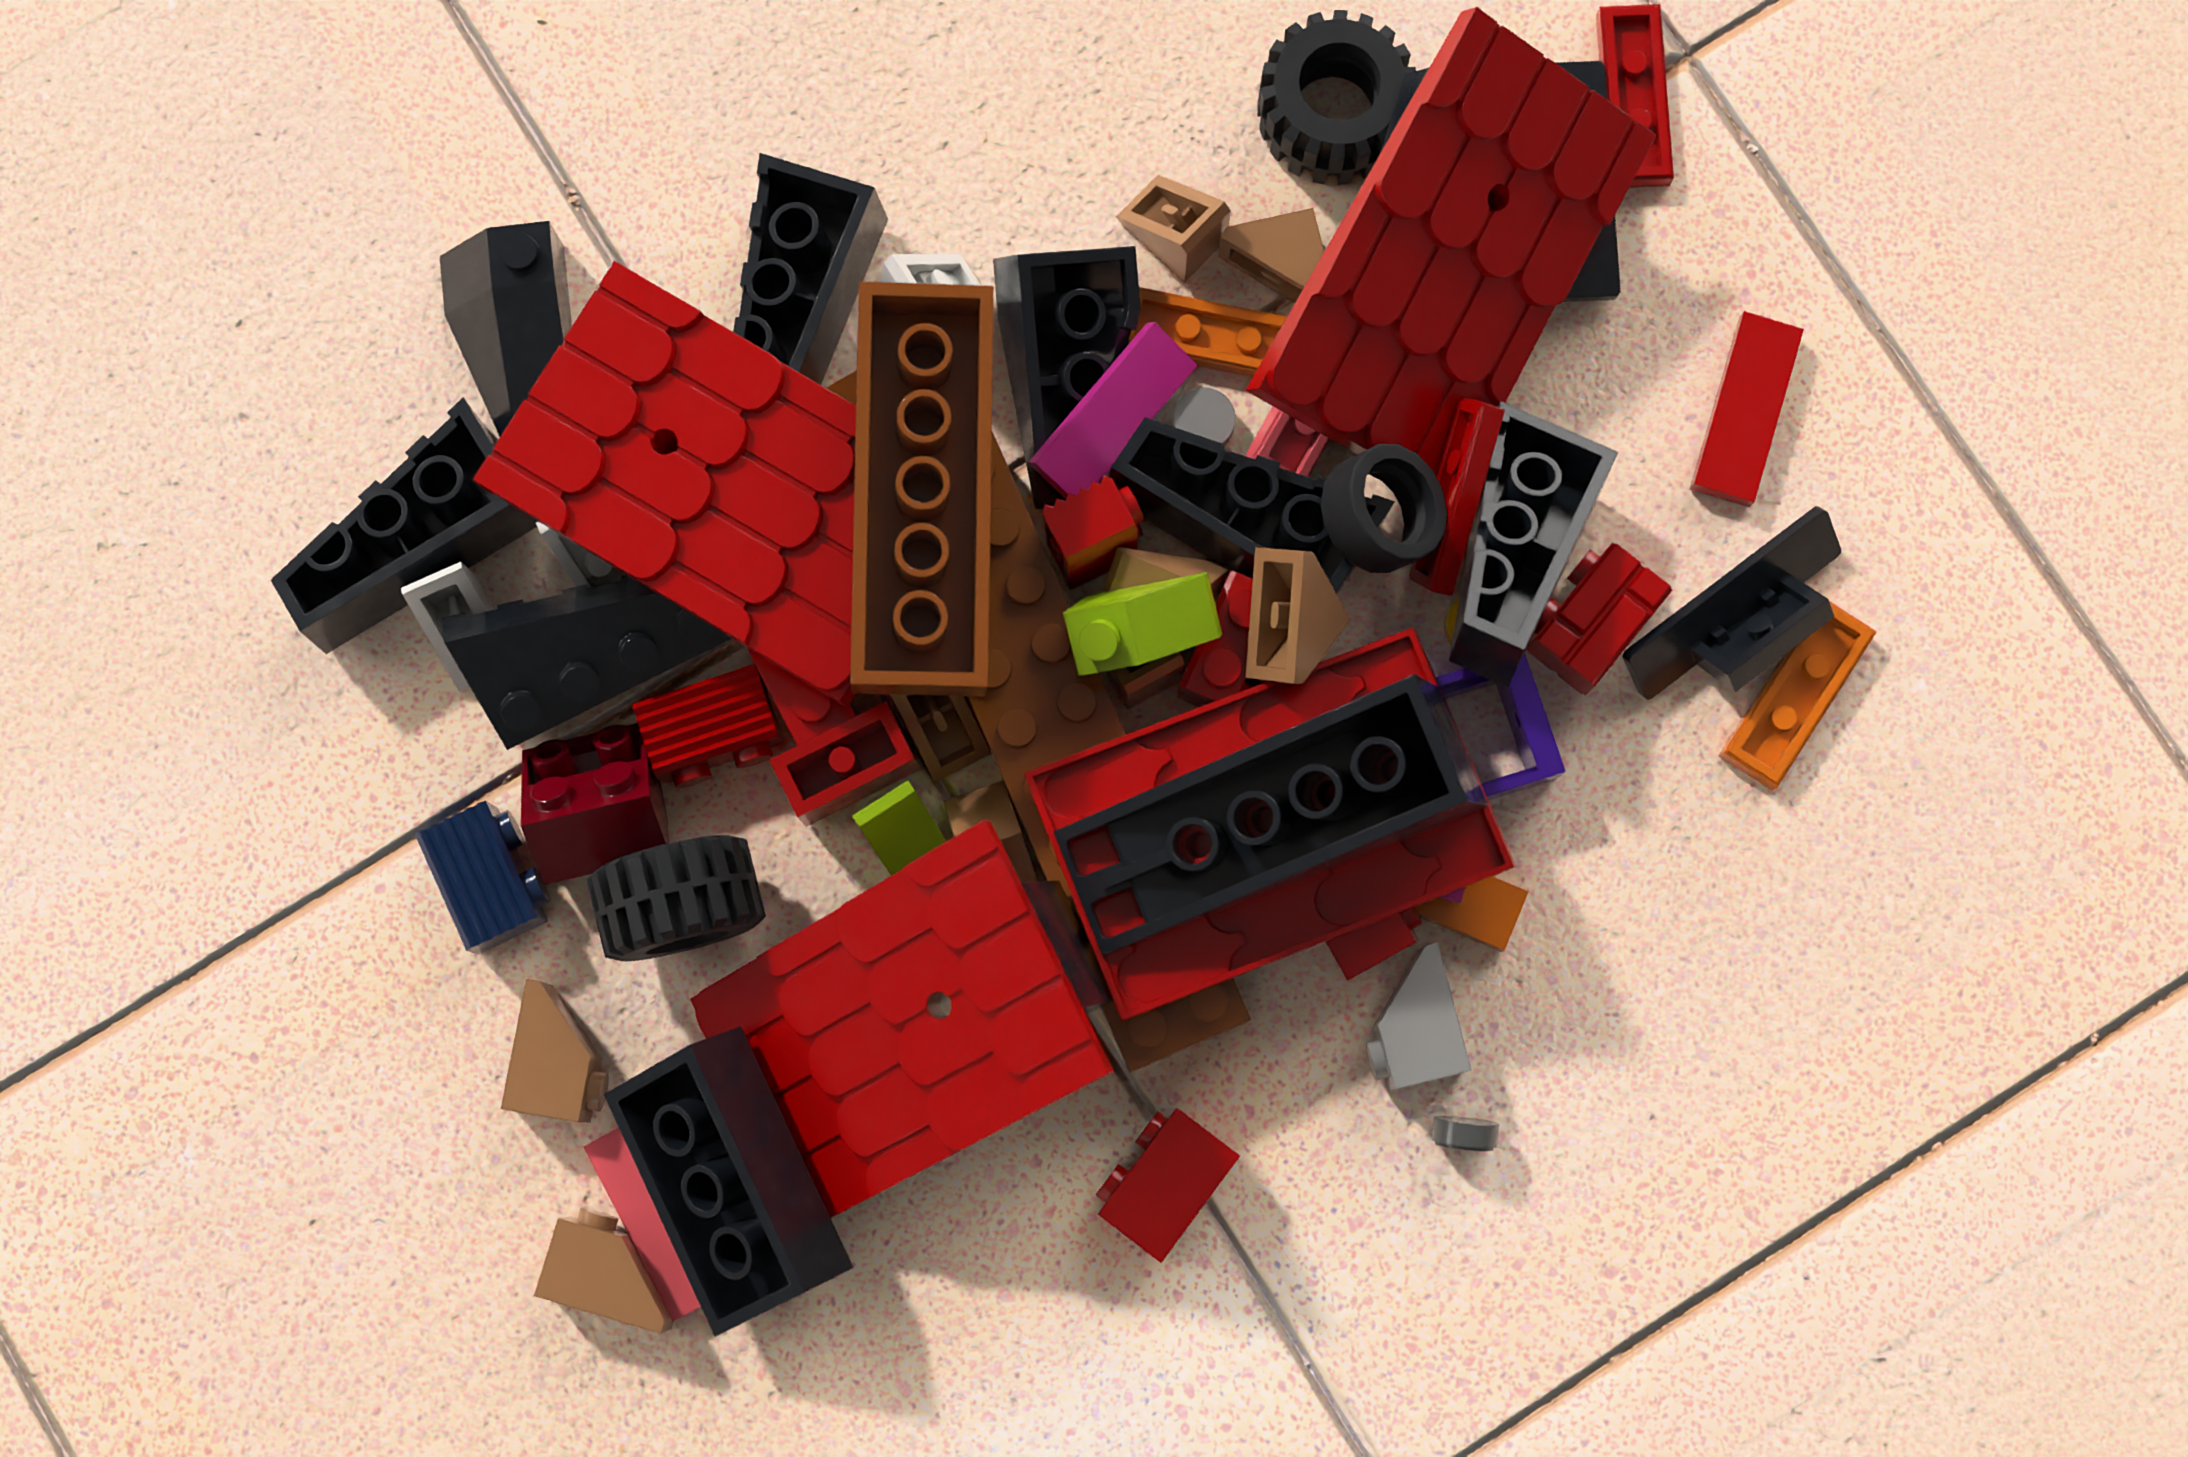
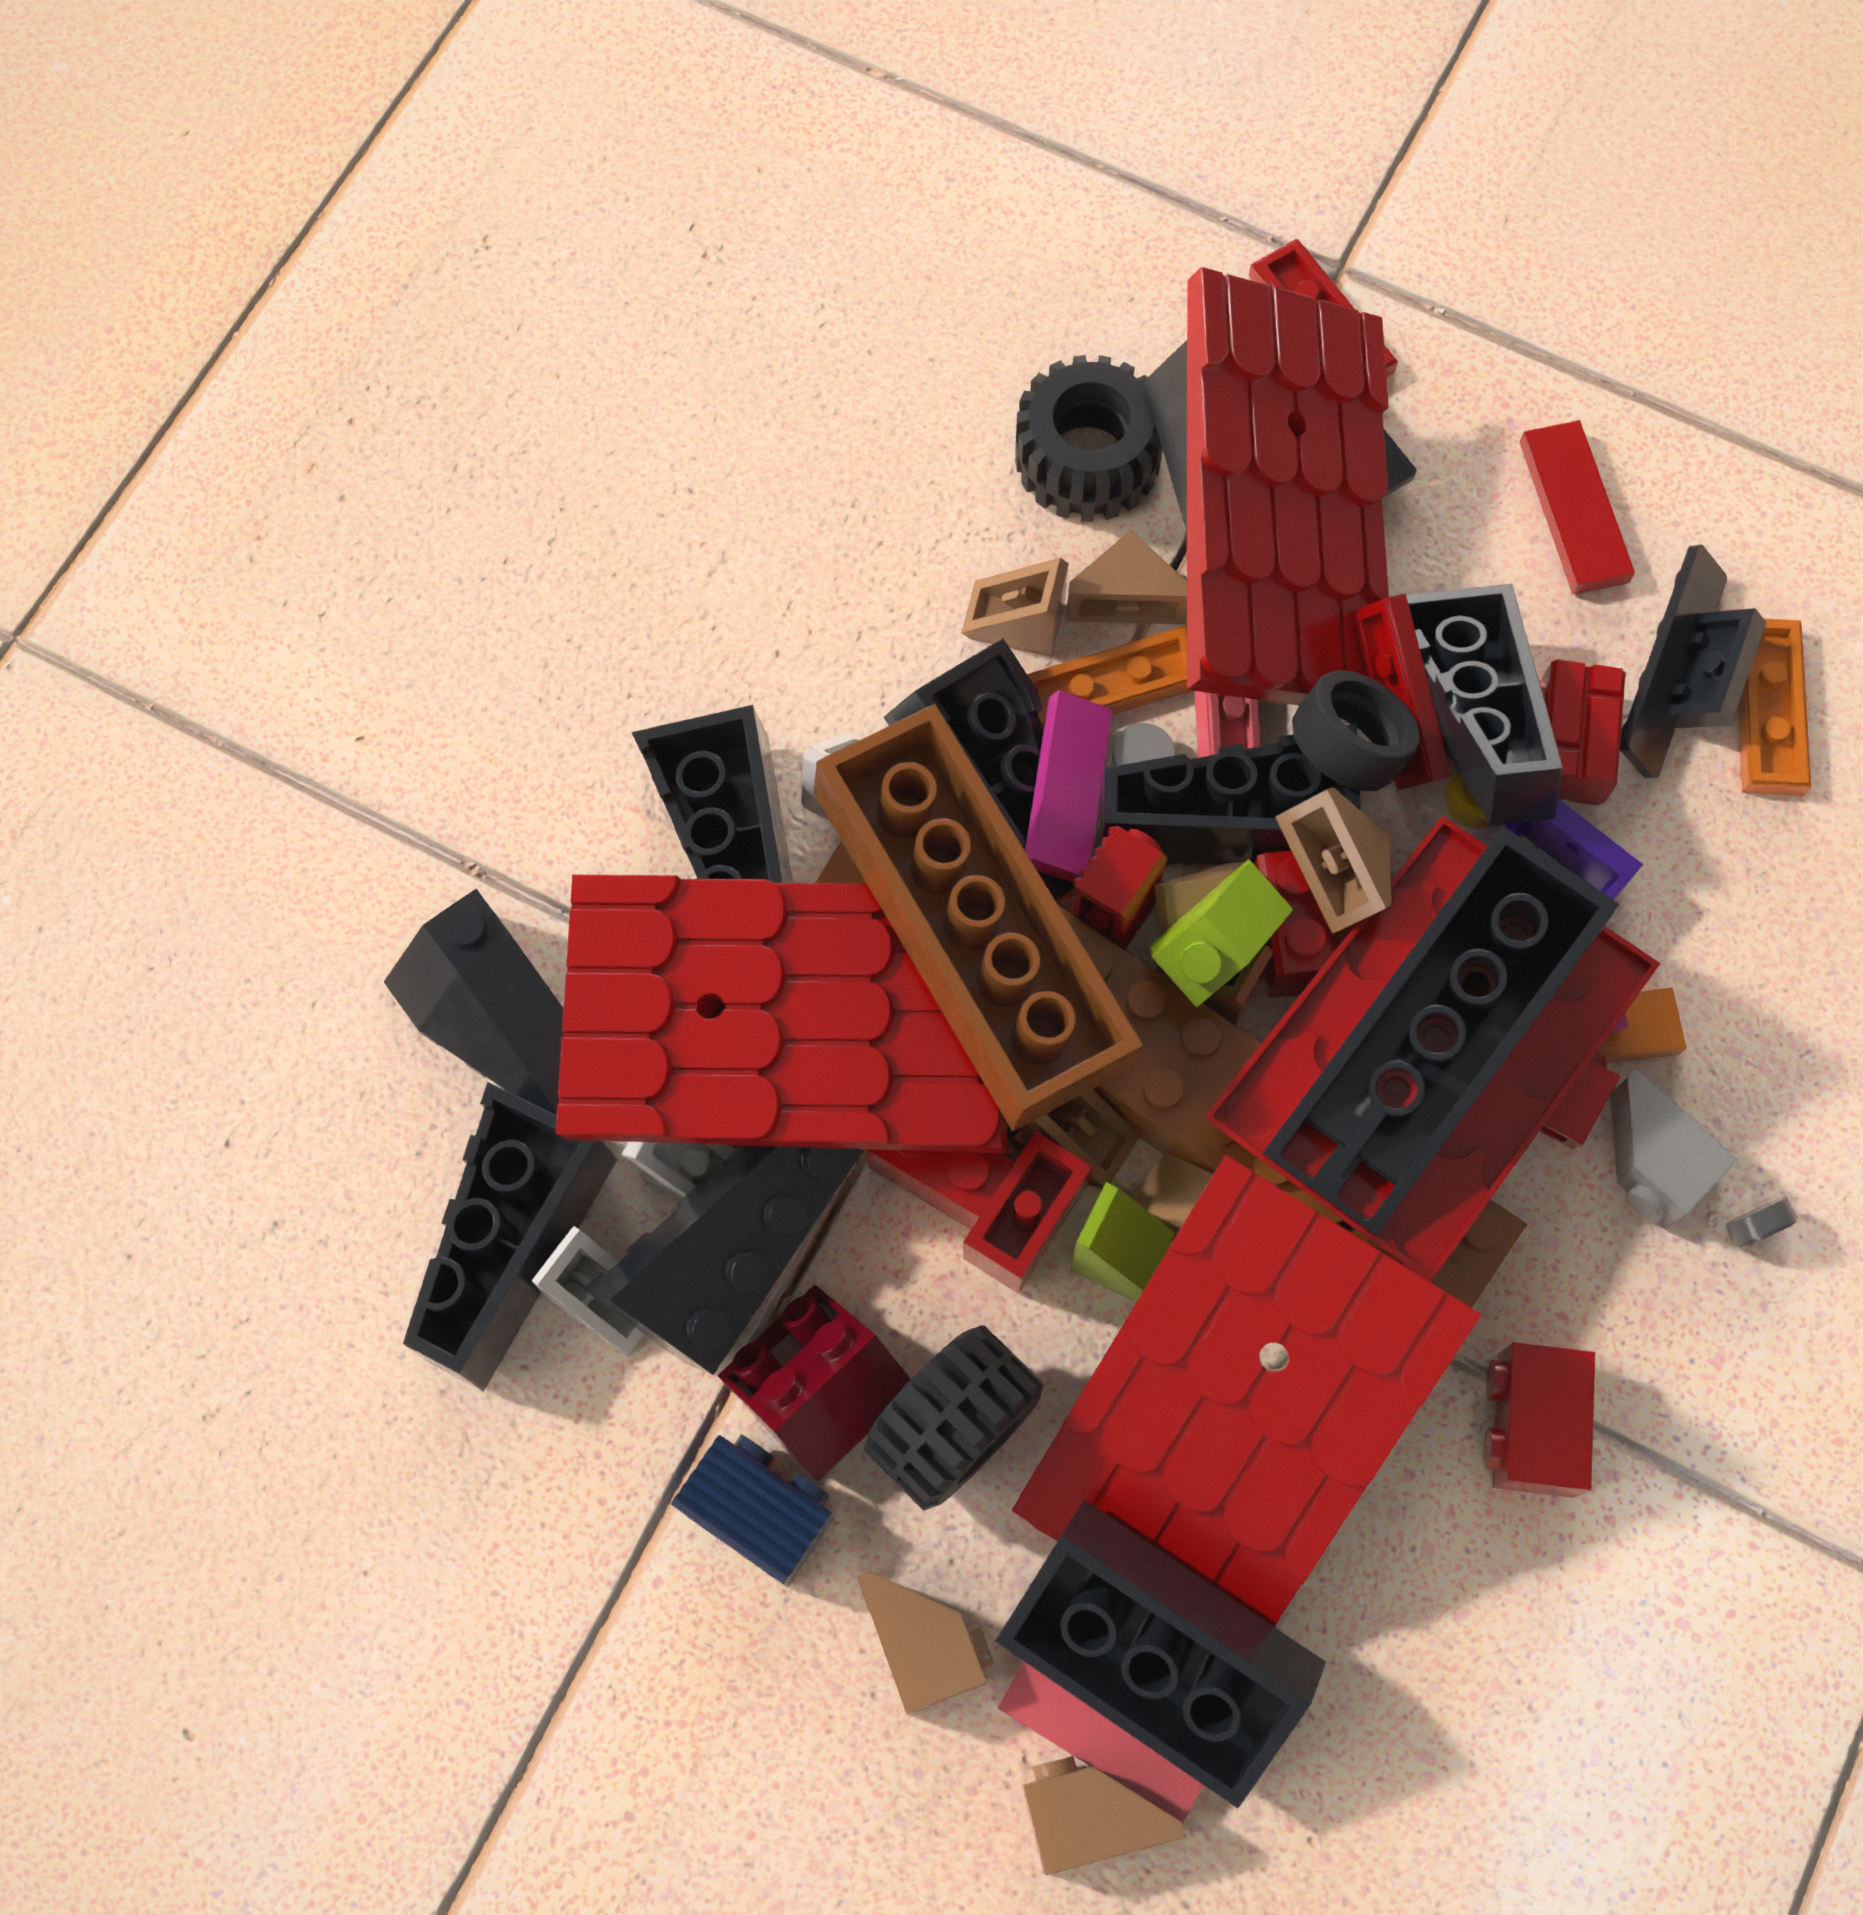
camera: 30 degrees left, 10 degrees down
(709, 726) = (881, 1251): red brick -> none

